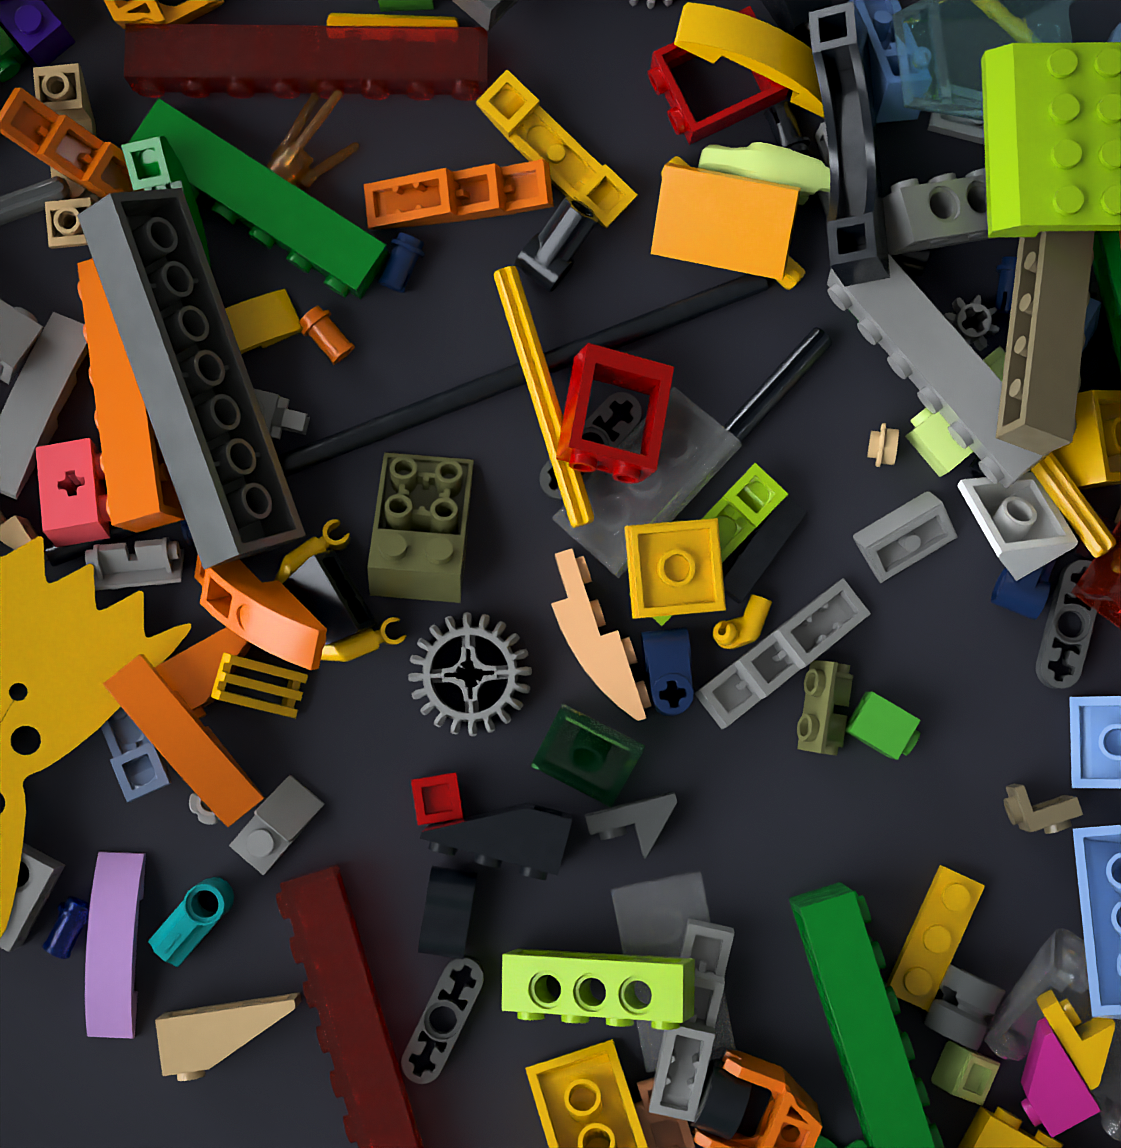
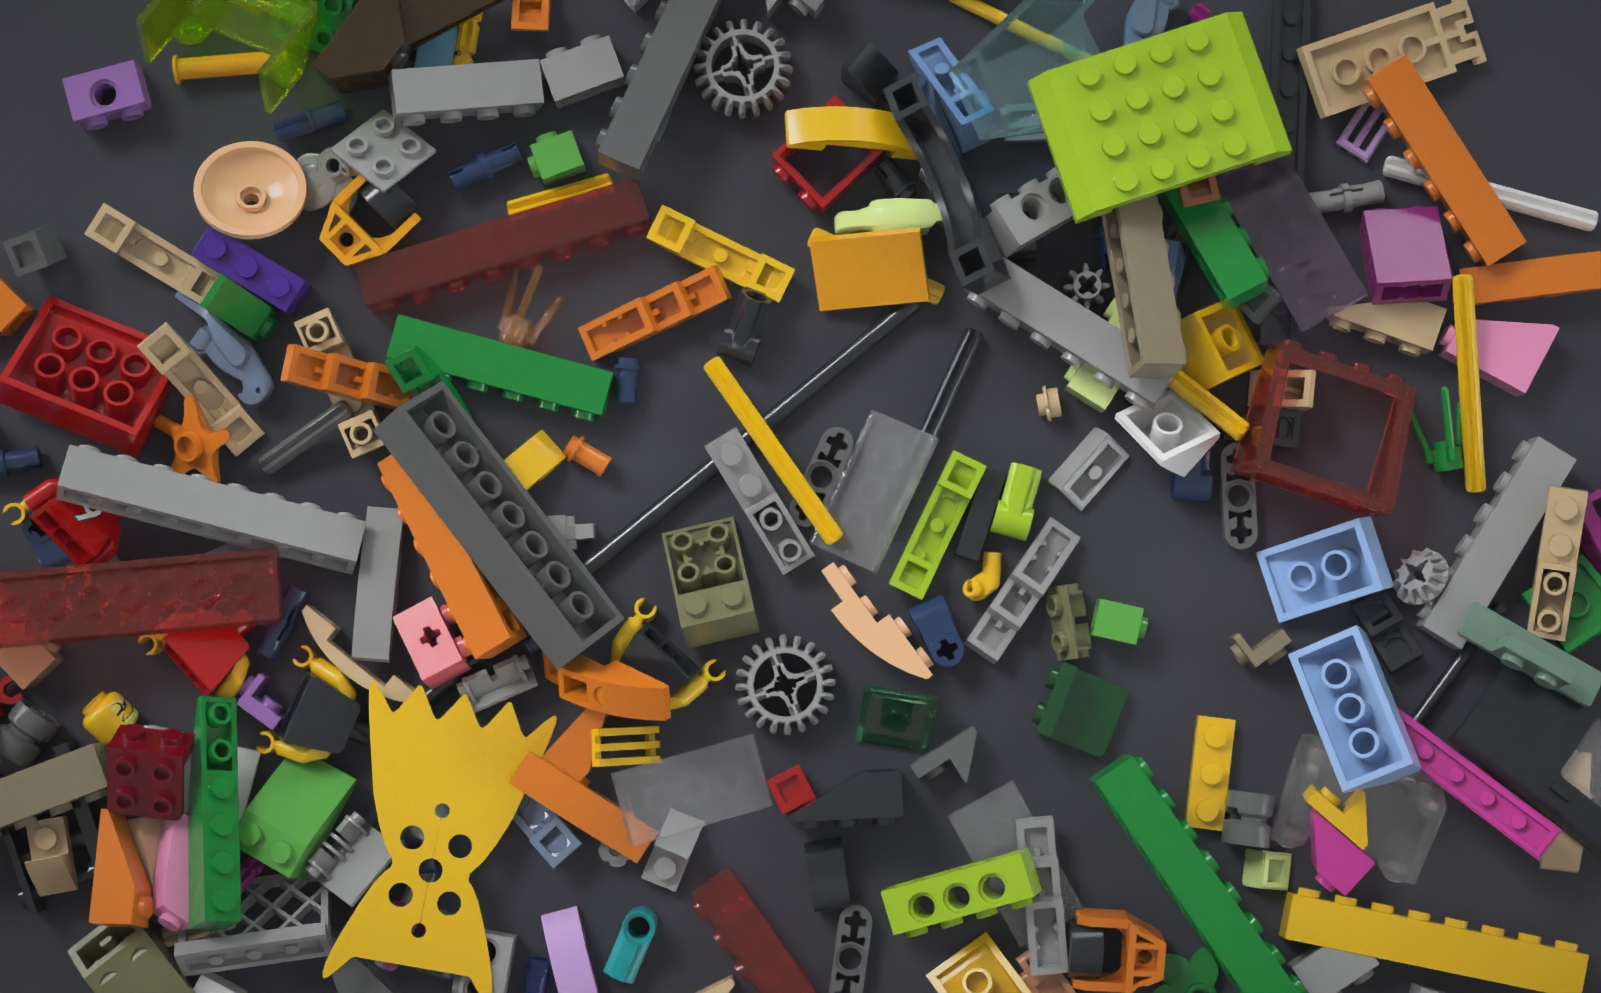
camera: 15 degrees left, 0 degrees up
(319, 762) = (691, 790): none -> clear tile
(509, 449) = (759, 500): none -> light grey slope
(624, 371) = (831, 412): red window -> none
(675, 568) = (917, 552): yellow plate -> none
(804, 556) = (1014, 510): none -> lime piece
(805, 813) = (1079, 709): none -> dark green bracket

